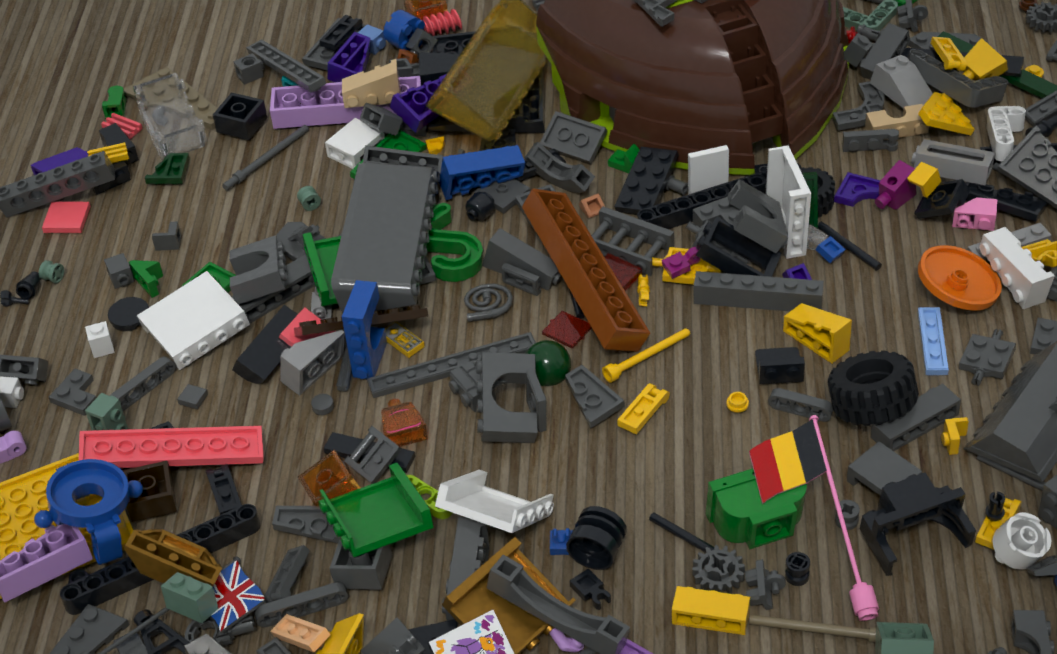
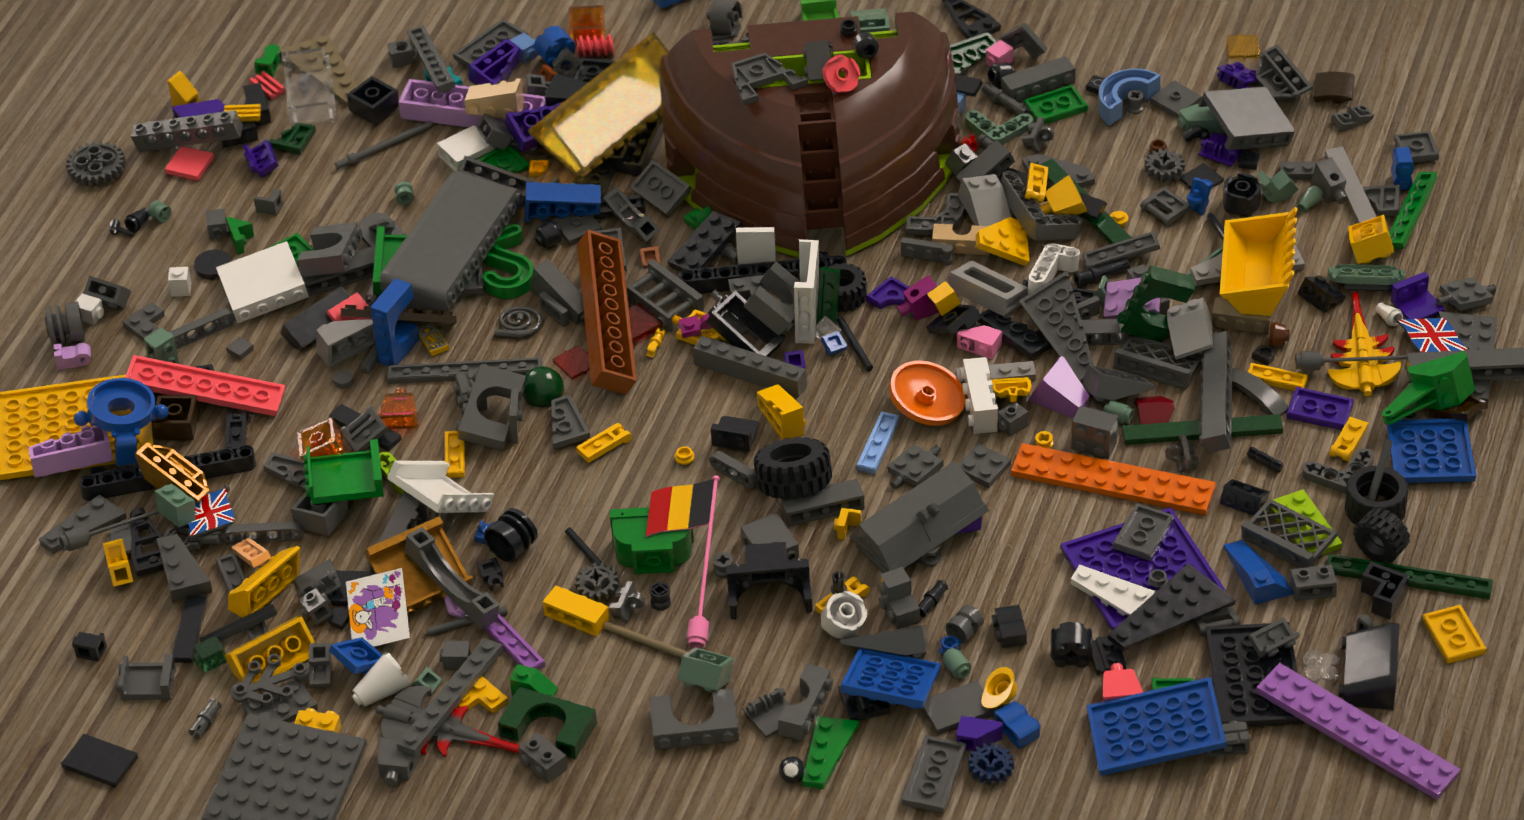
camera: 15 degrees right, 0 degrees up
(35, 146) = (182, 90): none -> yellow slope
(143, 195) = (261, 158): none -> dark purple bracket
(287, 574) = (259, 508): dark grey plate -> none
(340, 32) = (496, 35): black plate -> none
(483, 458) = (454, 455): none -> yellow tile
(612, 371) = (594, 406): yellow piece -> none

